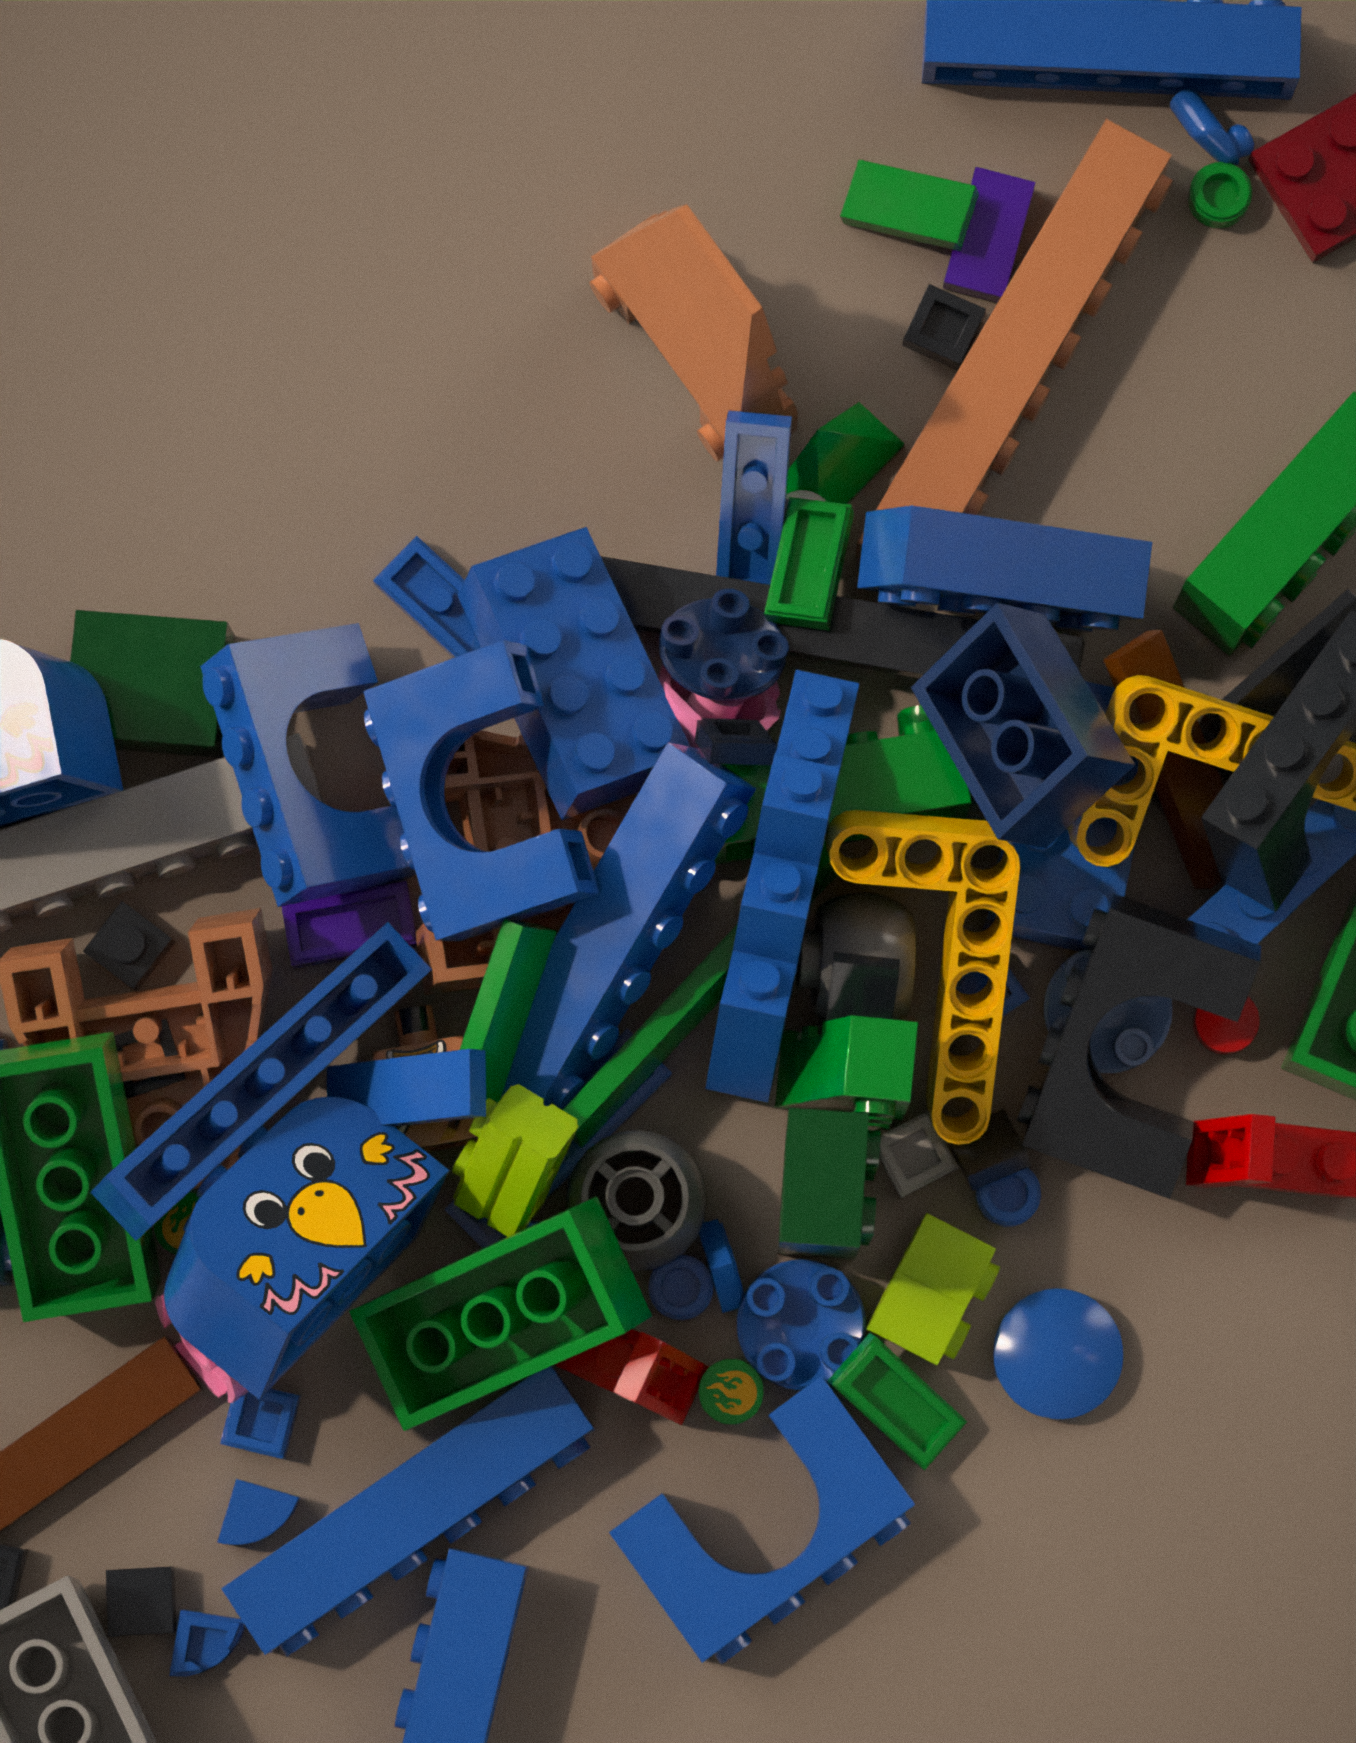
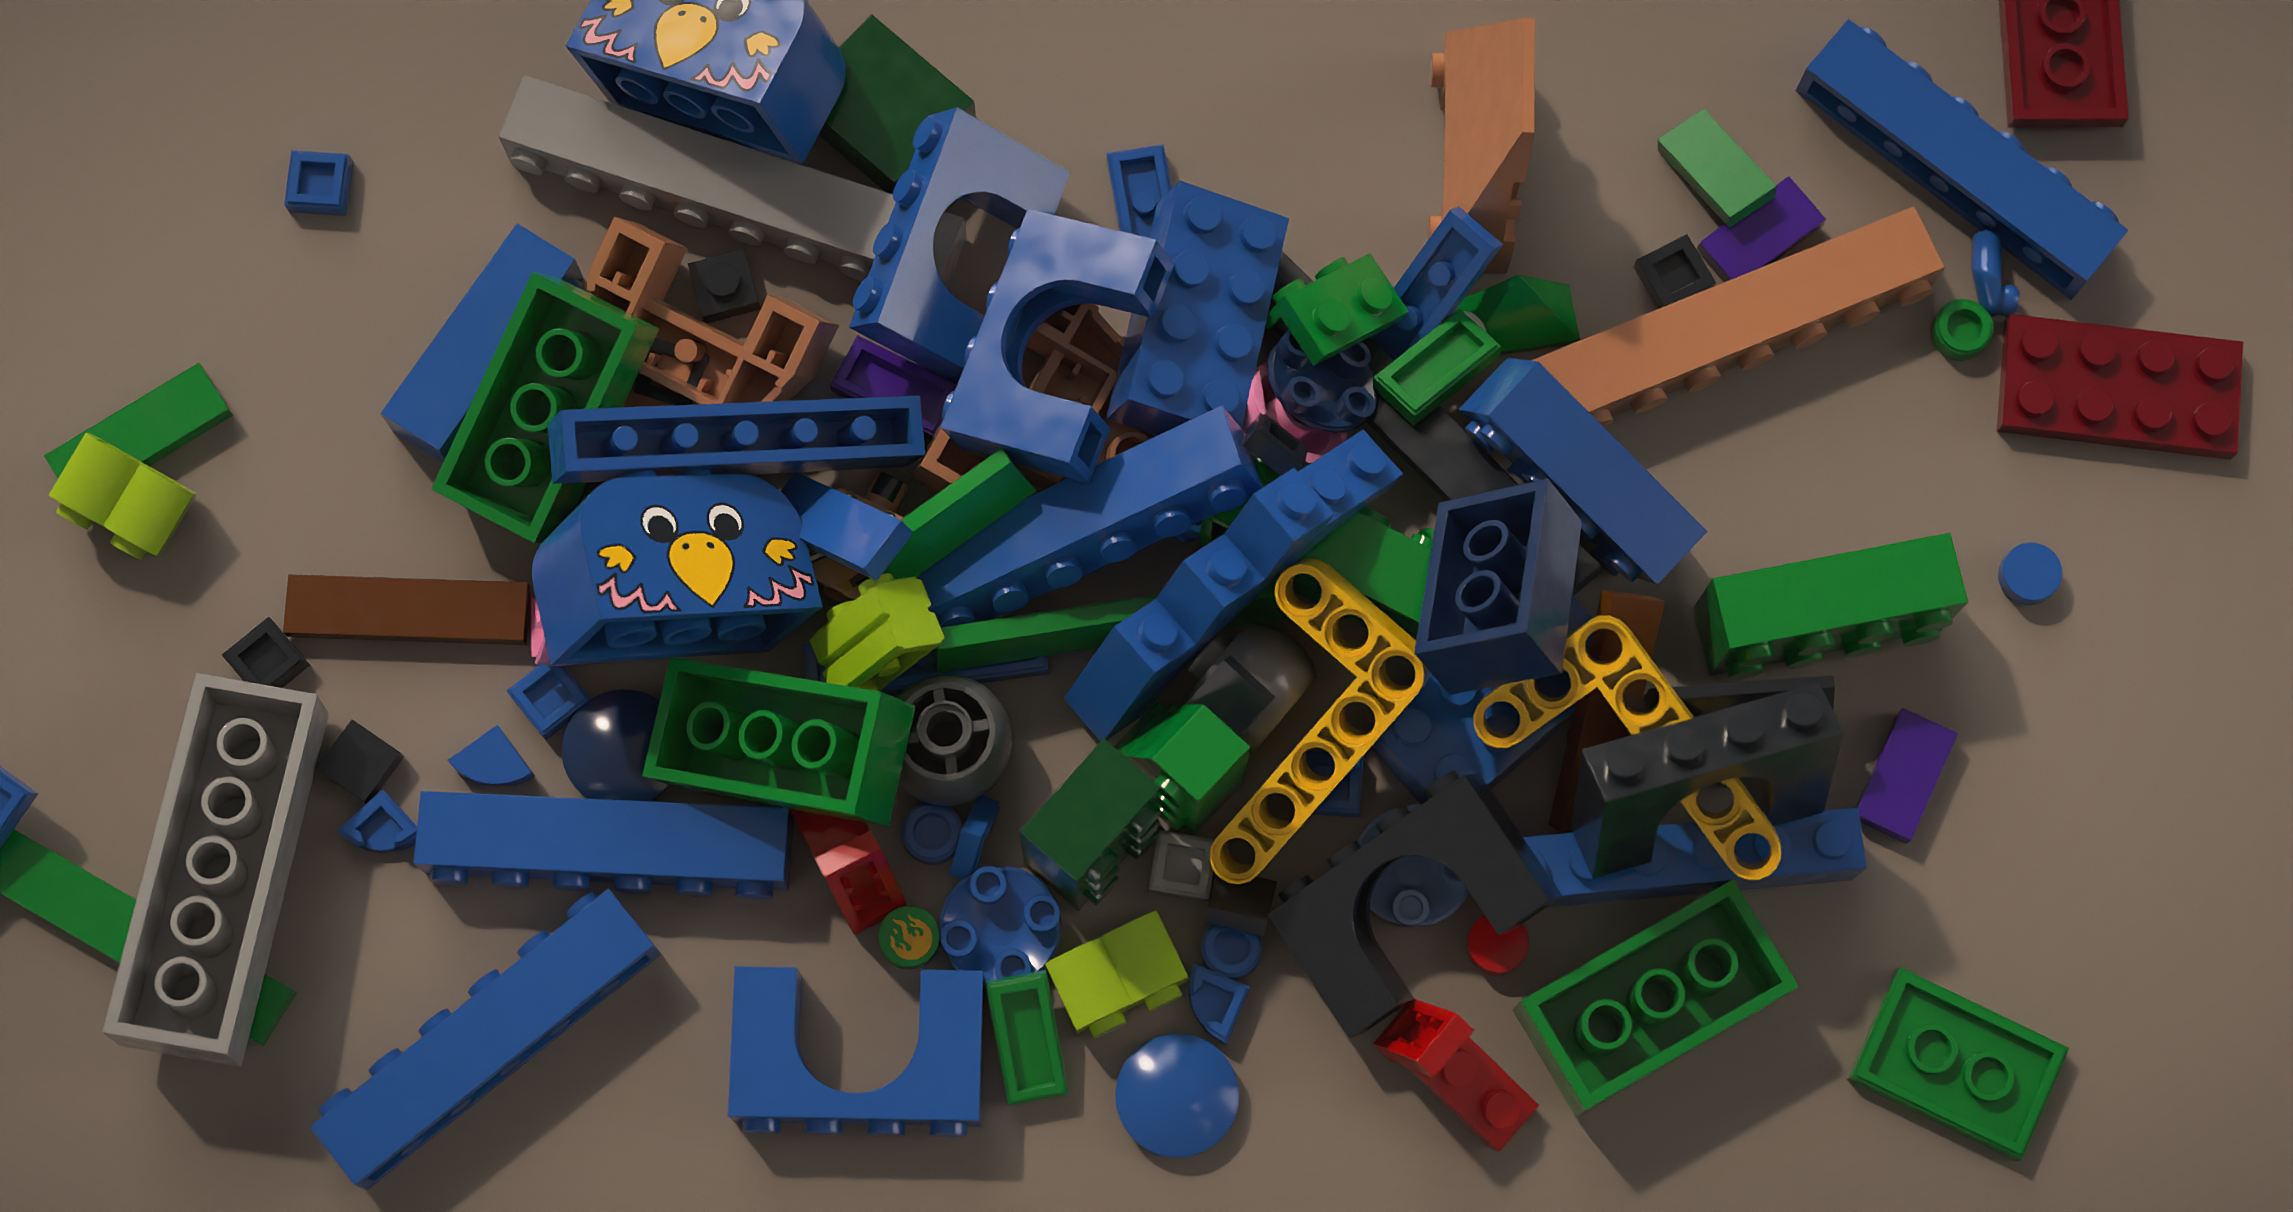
camera: 30 degrees right, 5 degrees down
(350, 1422) = (609, 747): none -> dark blue dish
(690, 575) = (1337, 308): none -> green bracket
(1029, 1249) = (1216, 1001): none -> blue tile

